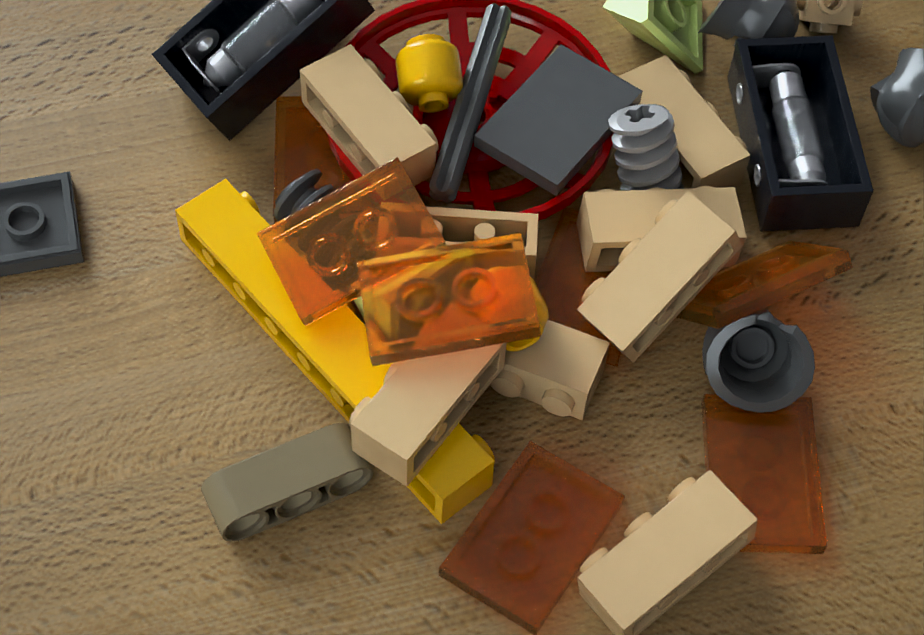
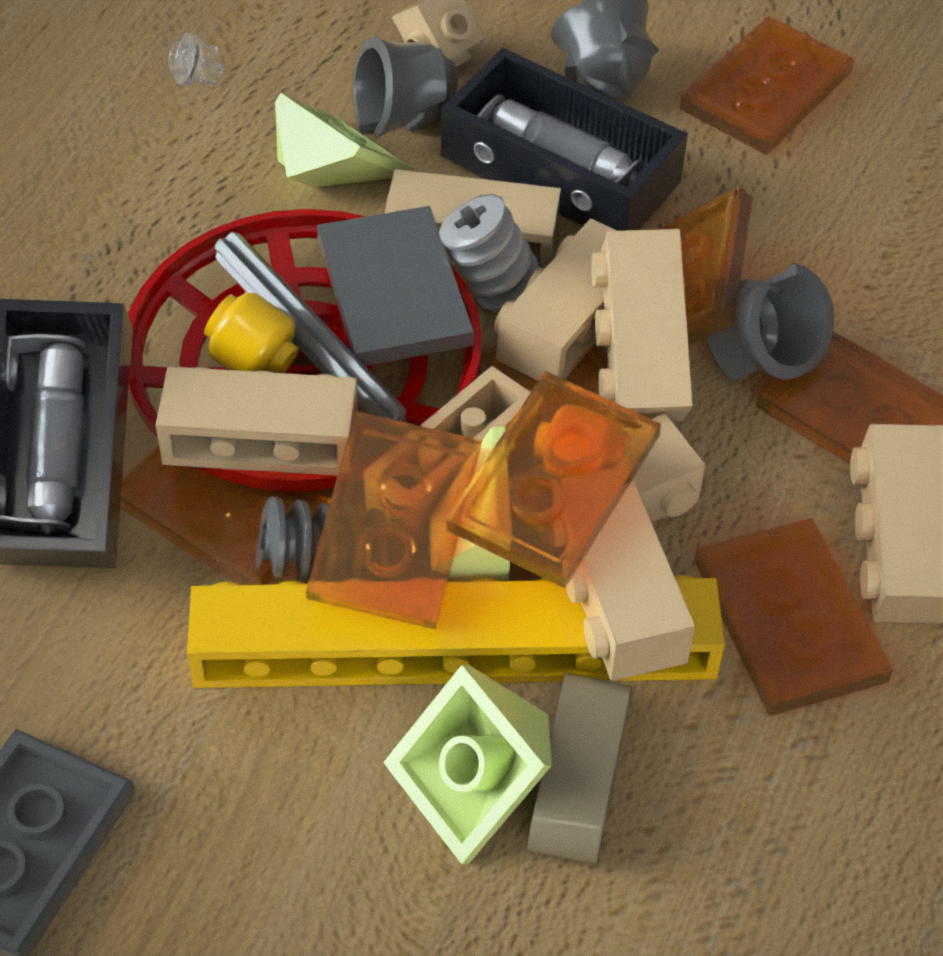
camera: 50 degrees left, 5 degrees down
(238, 412) = (472, 759): none -> yellowish green slope

